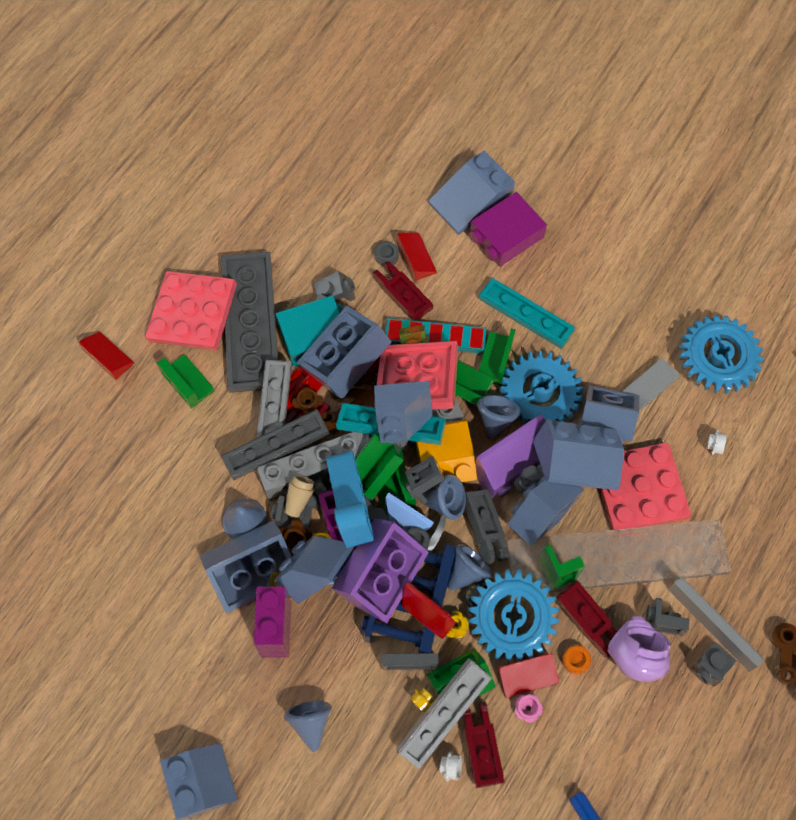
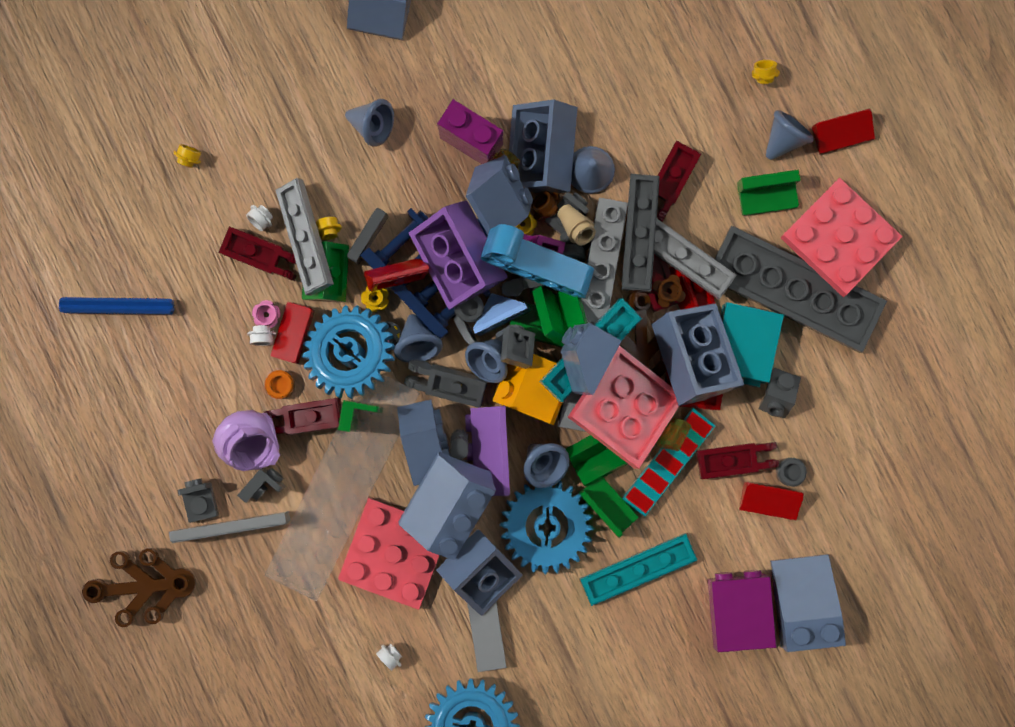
camera: 120 degrees right, 20 degrees up
(88, 433) = (765, 71): none -> yellow plate
(133, 389) = (786, 135): none -> sand blue hat
(208, 452) = (675, 174): none -> dark red hinge
(548, 699) = (261, 336): none -> white plate

